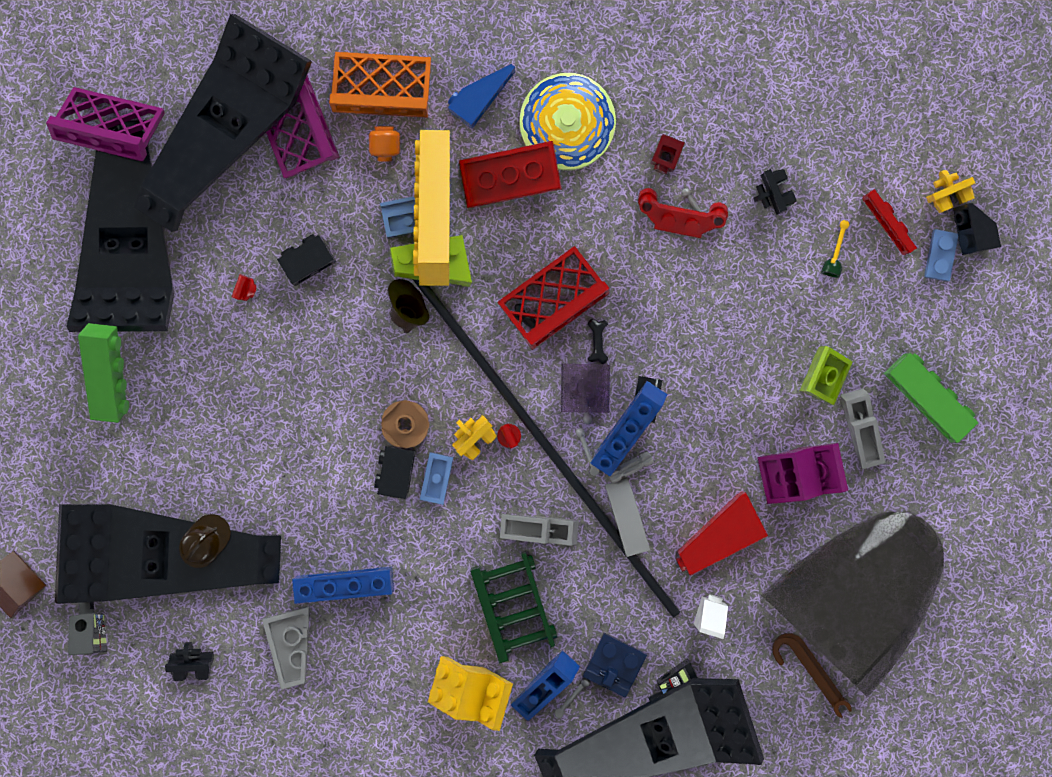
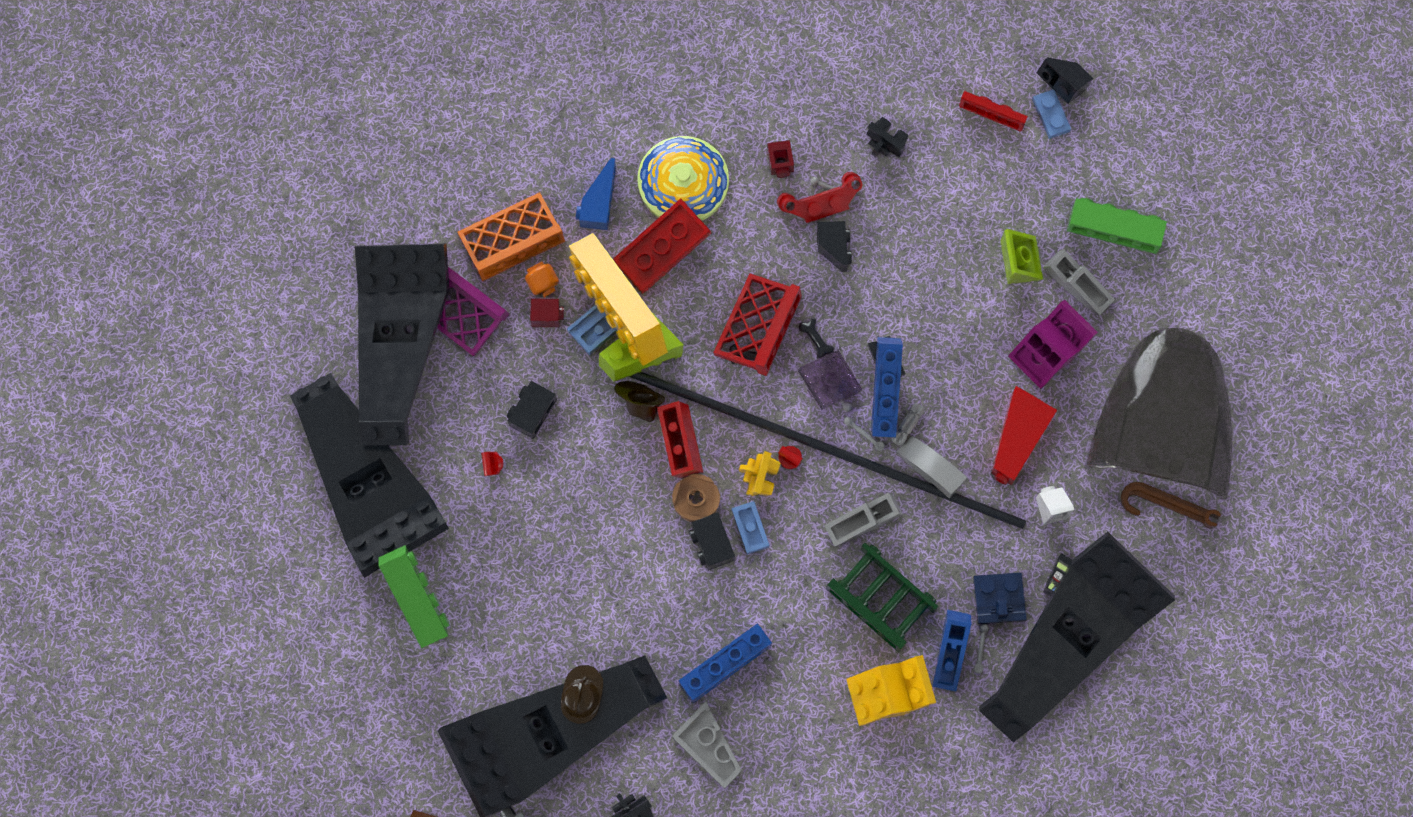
camera: 30 degrees left, 15 degrees down
(98, 136) = (301, 402): magenta fence -> none
(370, 177) = (546, 313): none -> dark red brick
(419, 366) = (680, 439): none -> red brick
(665, 262) = (832, 243): none -> black slope
(833, 267) = (970, 171): hinge -> none
(962, 190) = (1021, 69): yellow hips -> none

